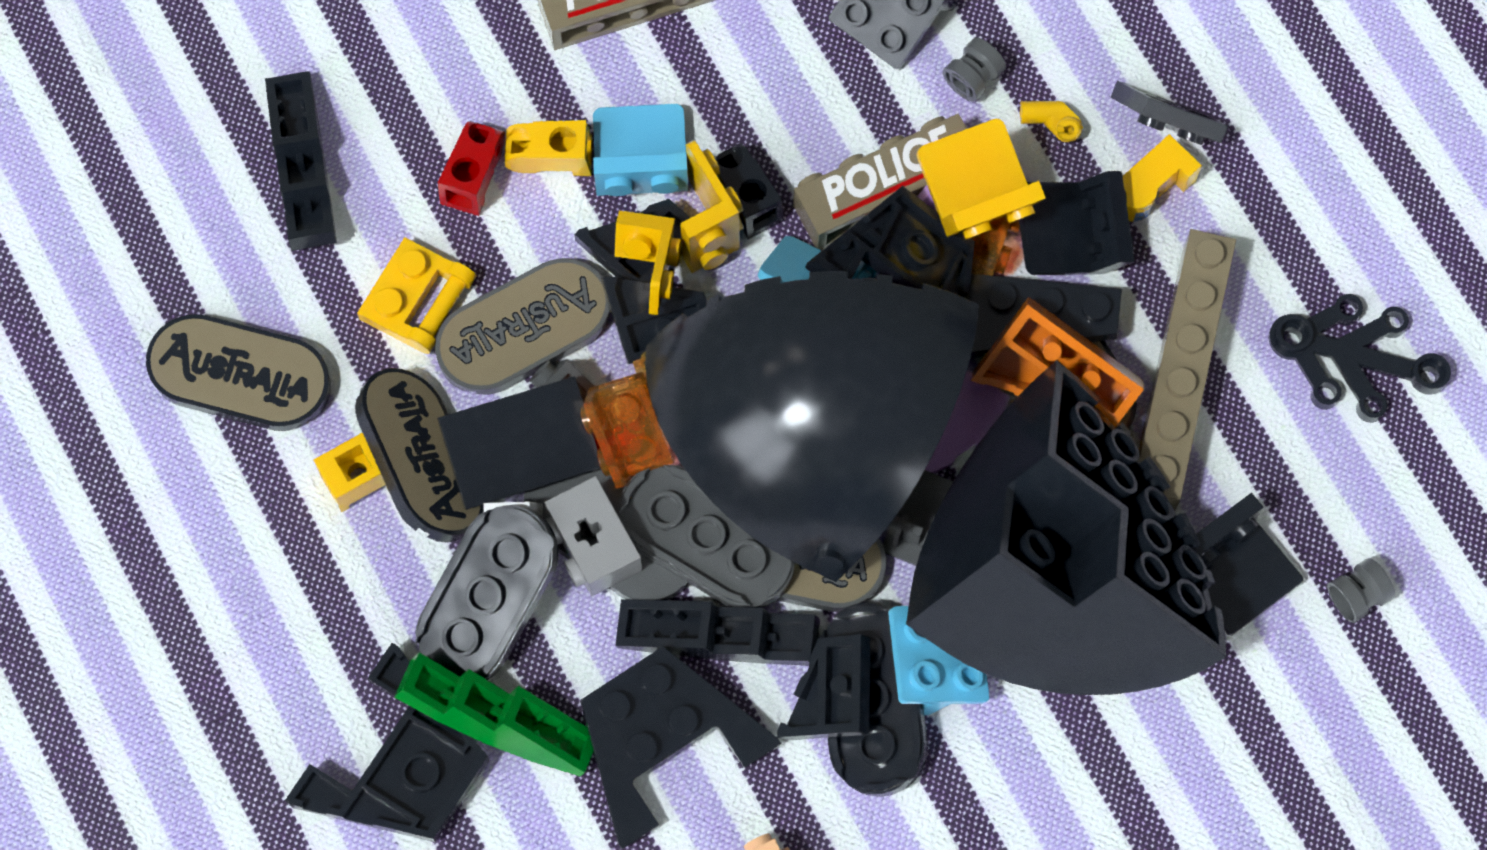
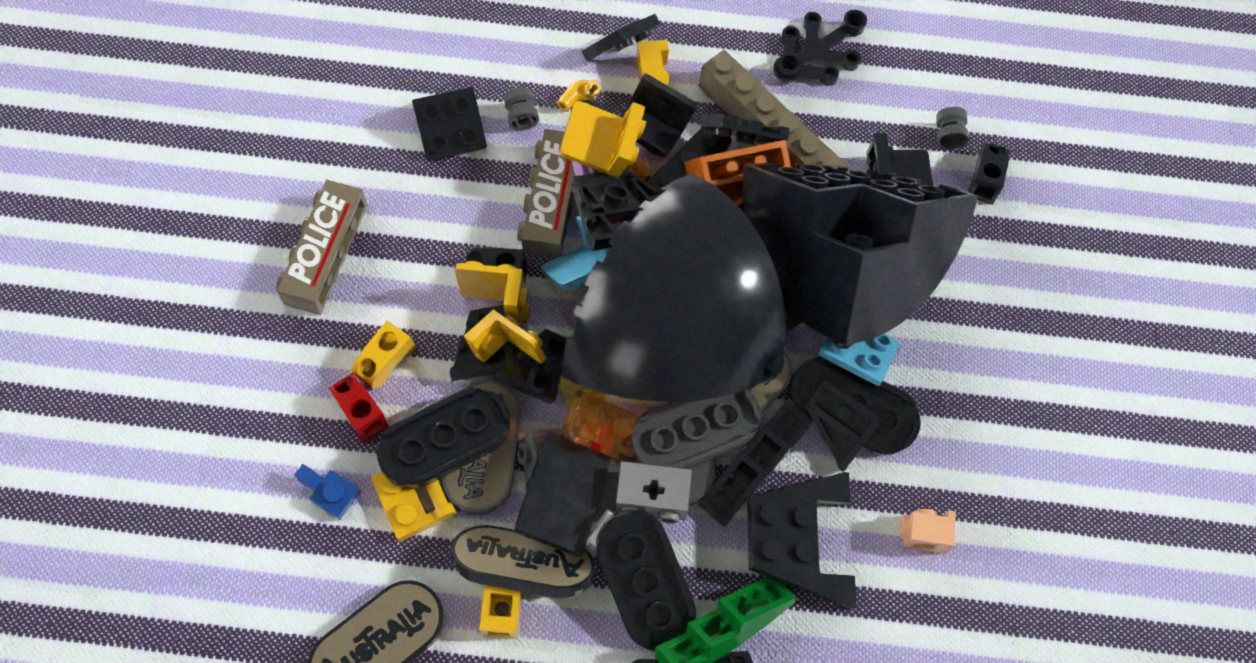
camera: 60 degrees left, 5 degrees down
(300, 161) = (267, 506): black slope -> none
(361, 211) = (330, 493): none -> blue plate
(499, 277) = (443, 437): none -> black tile
(640, 150) = (427, 307): medium azure bracket -> none
(1129, 332) = (744, 130): none -> black wing
(1331, 674) = (989, 172): none -> black leg

